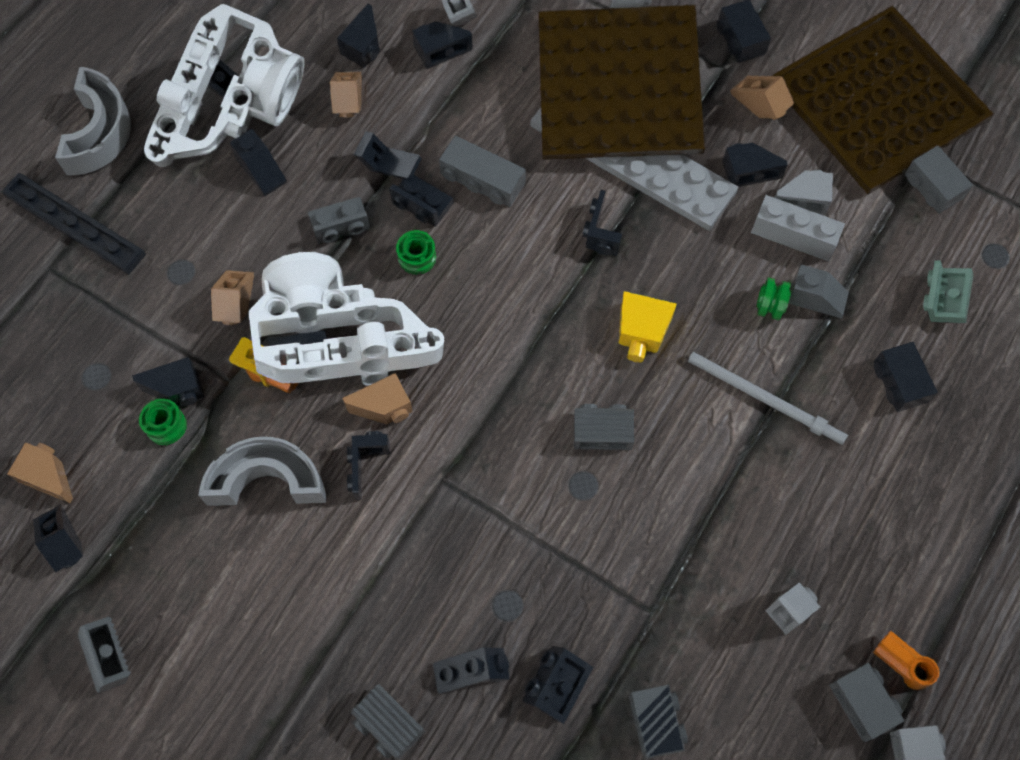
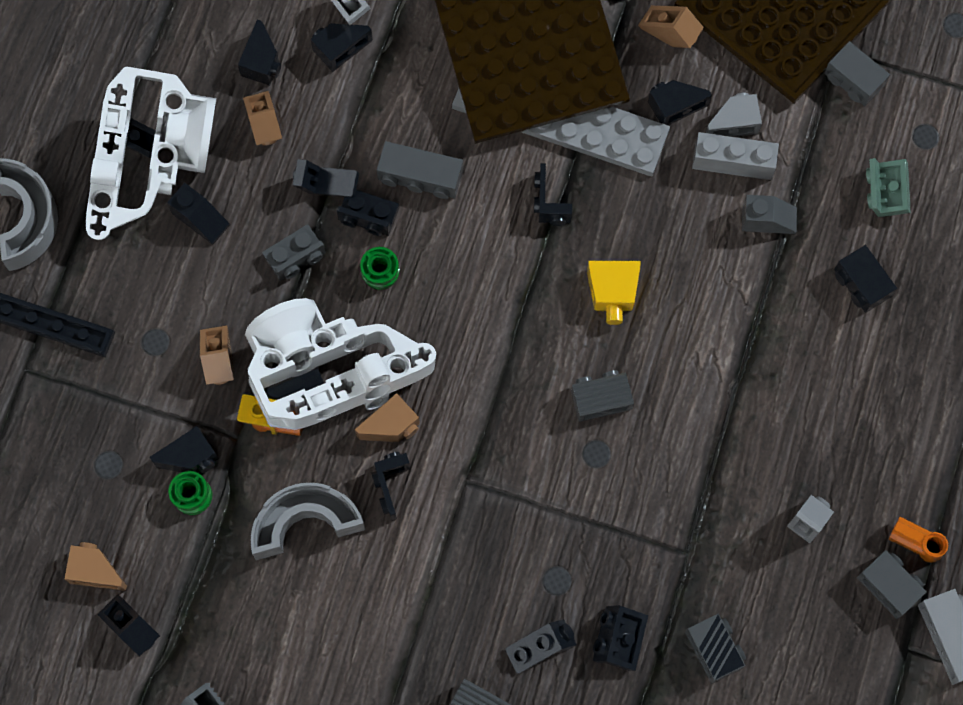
camera: 15 degrees left, 5 degrees up
(773, 298) = (728, 233): green wheel -> none
(817, 425) = (796, 344): light grey bar -> none

